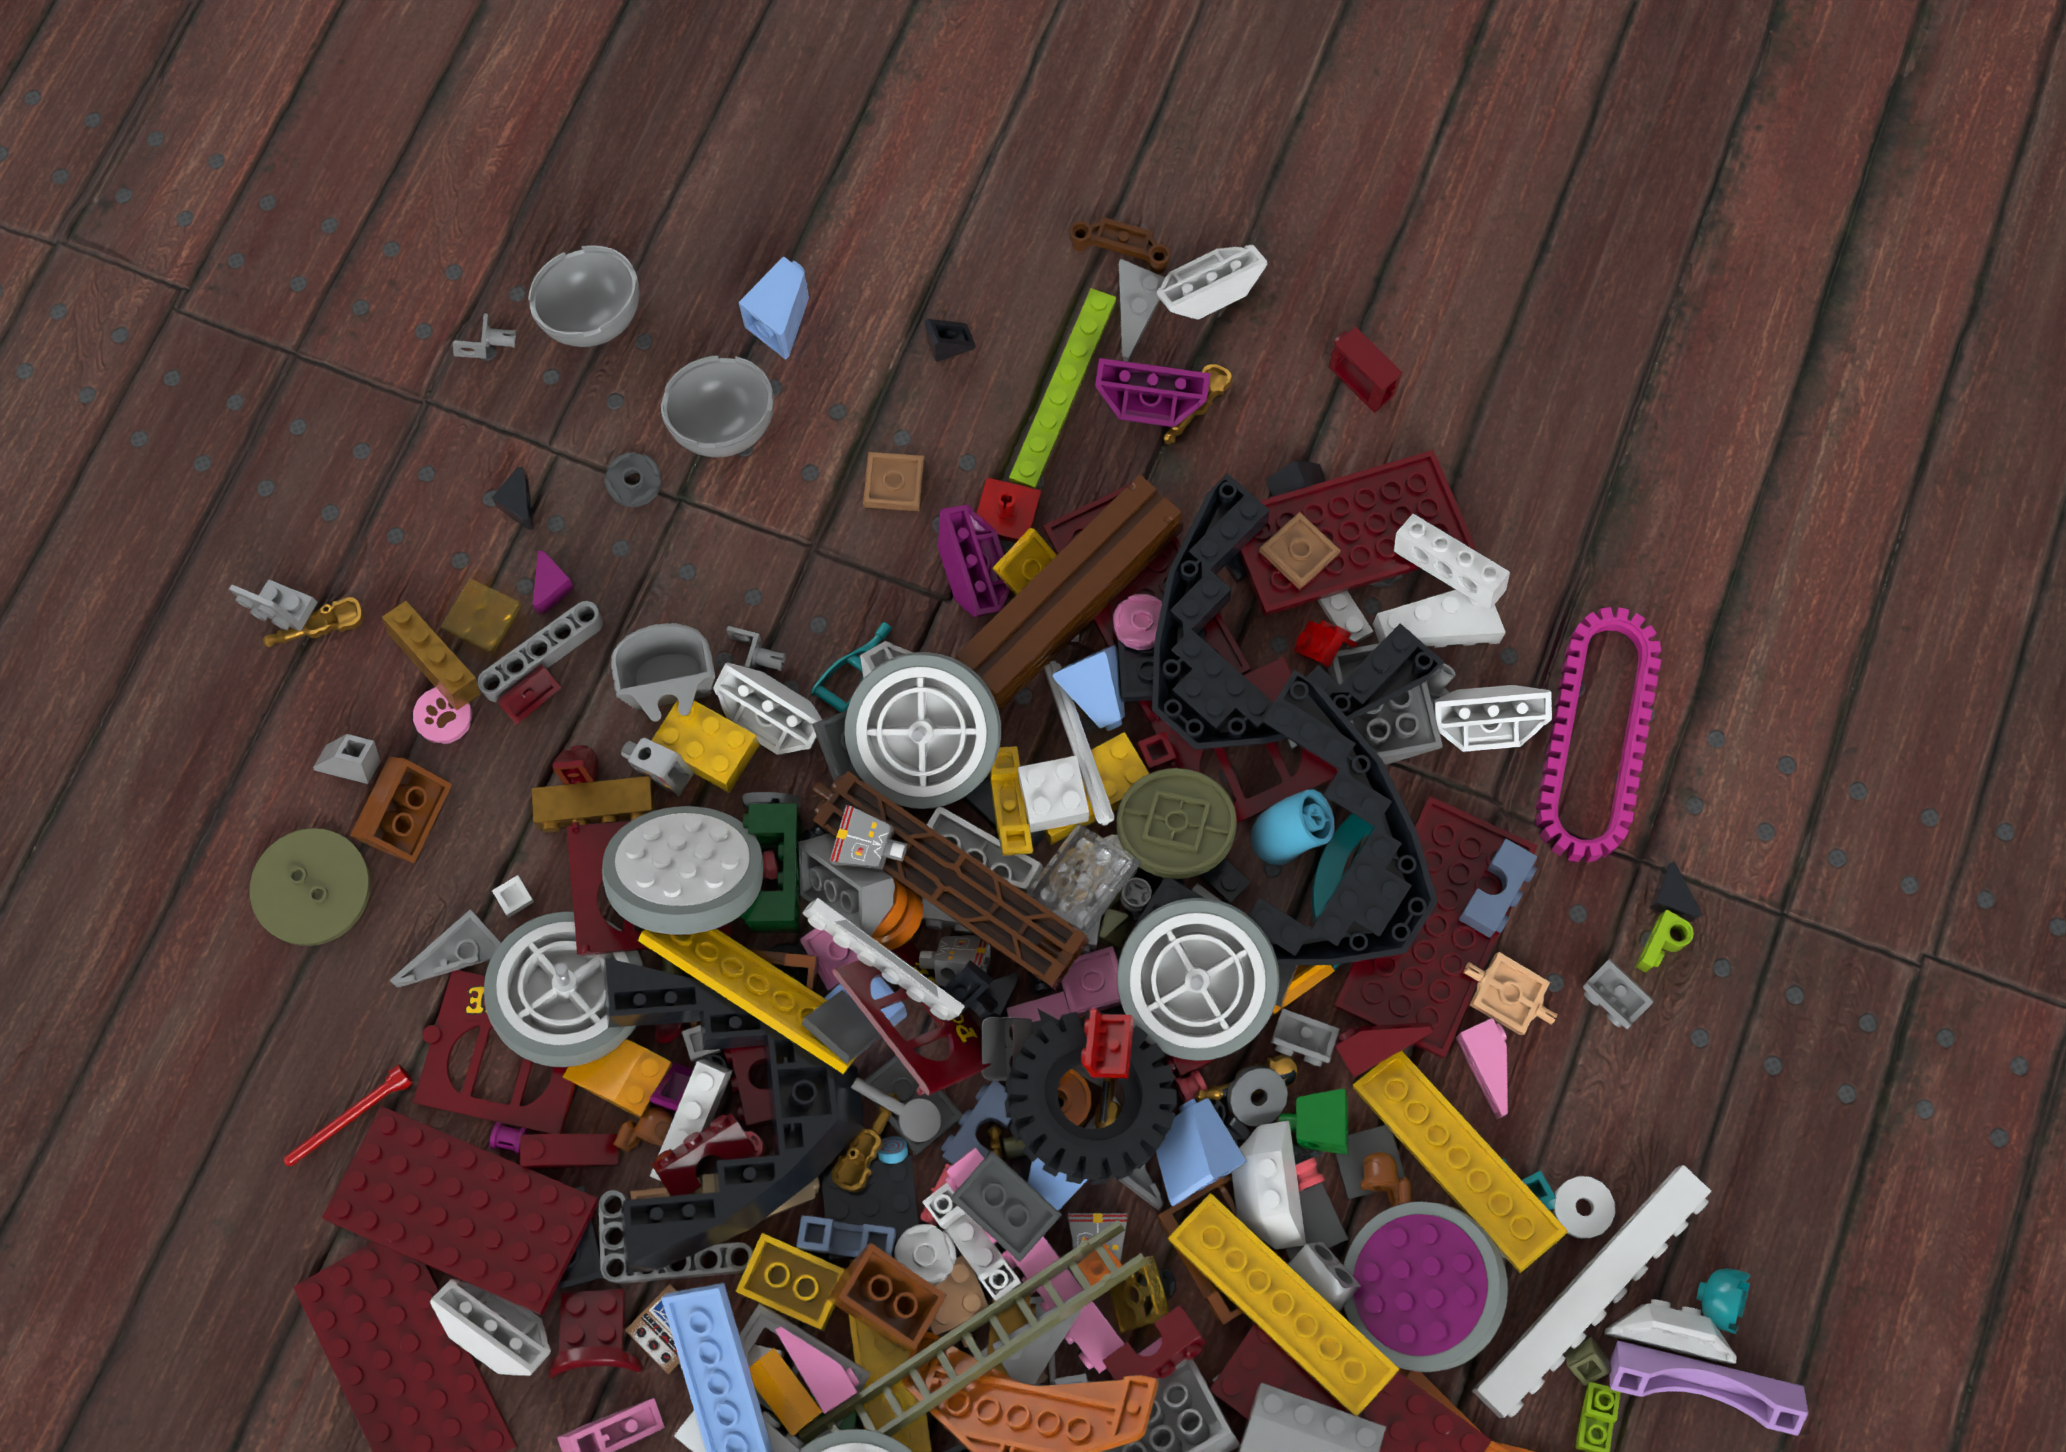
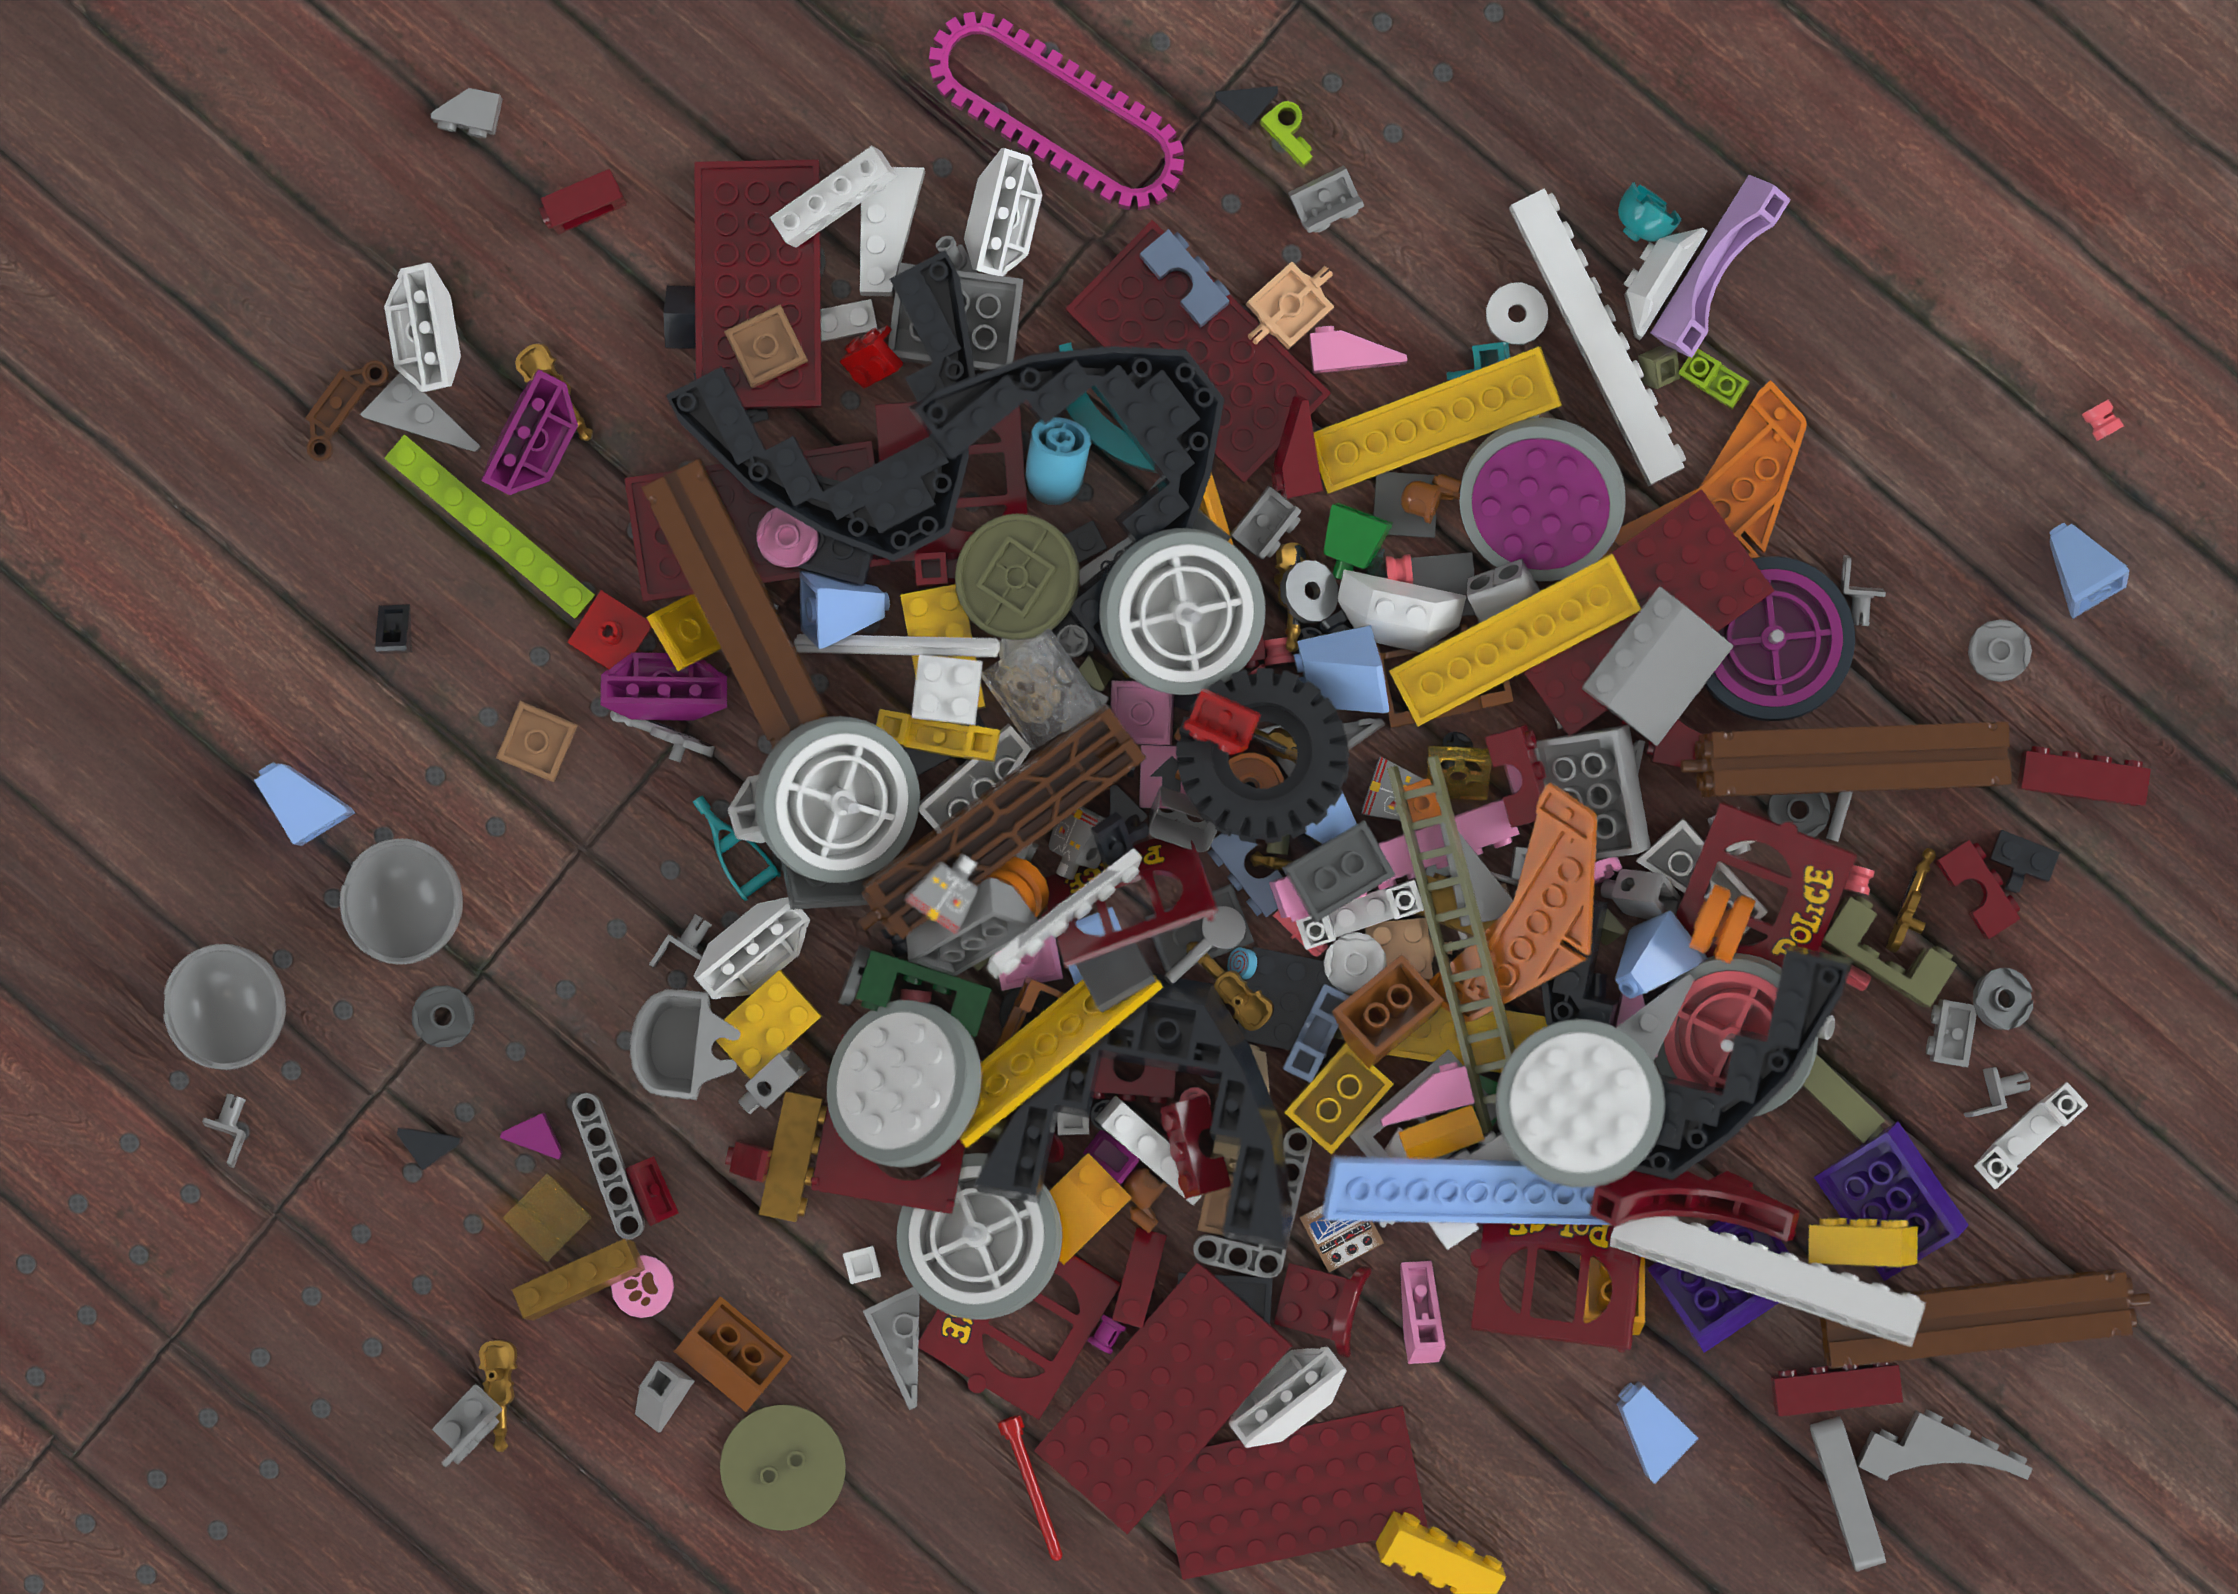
camera: 75 degrees left, 15 degrees up
(932, 594) = (668, 734): none -> light grey piece
(1404, 264) = (470, 110): none -> light grey slope

